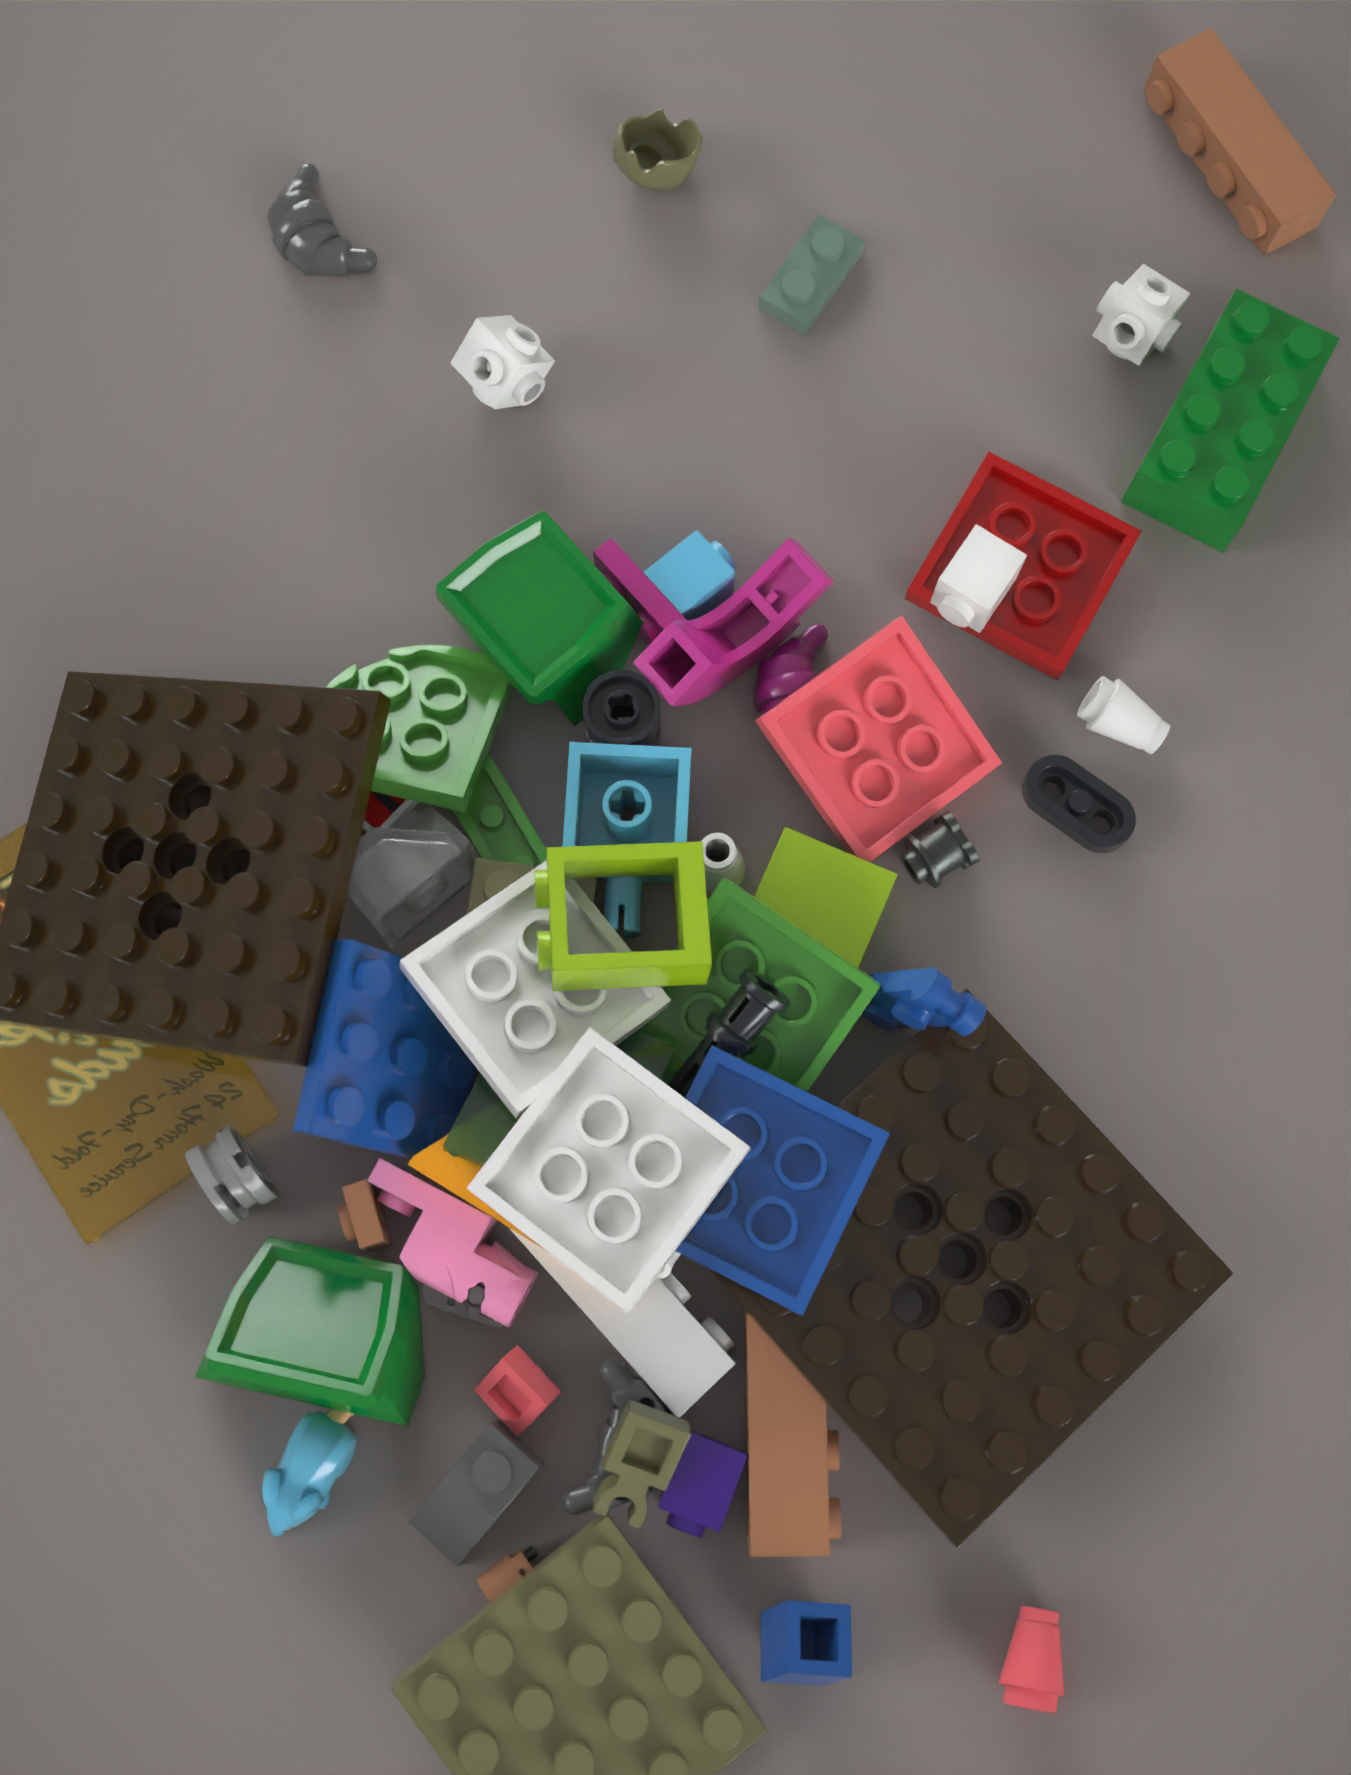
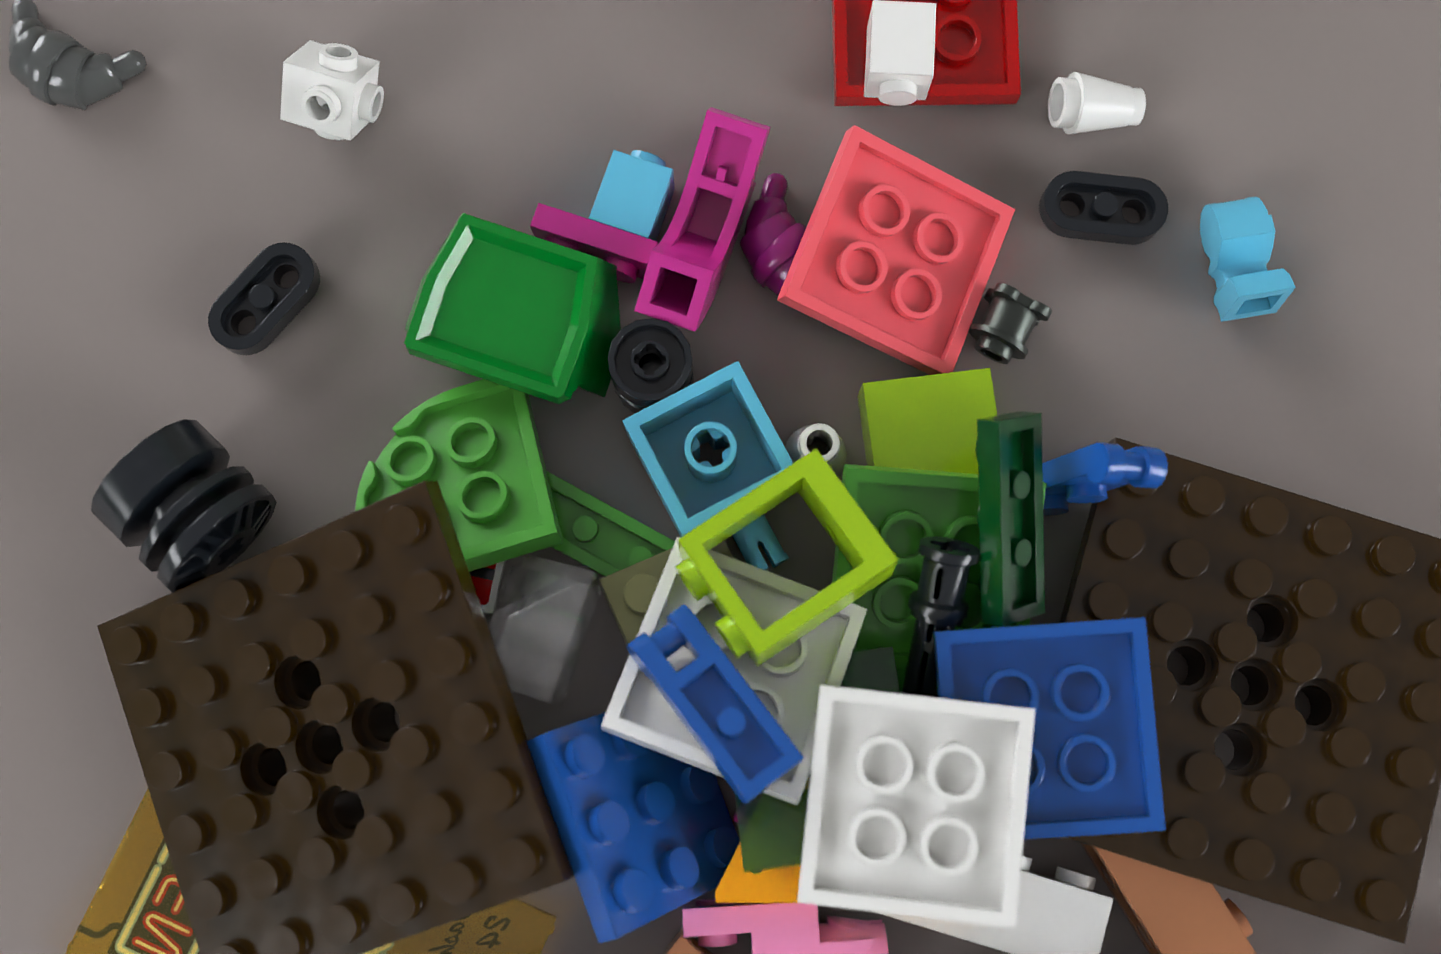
camera: 30 degrees left, 5 degrees up
(190, 612) = (182, 504): none -> black wheel
(352, 491) = (260, 295): none -> black plate
(498, 997) = (716, 705): none -> blue plate
(831, 992) = (1011, 517): none -> dark green plate
(1171, 909) = (1240, 244): none -> medium azure leg

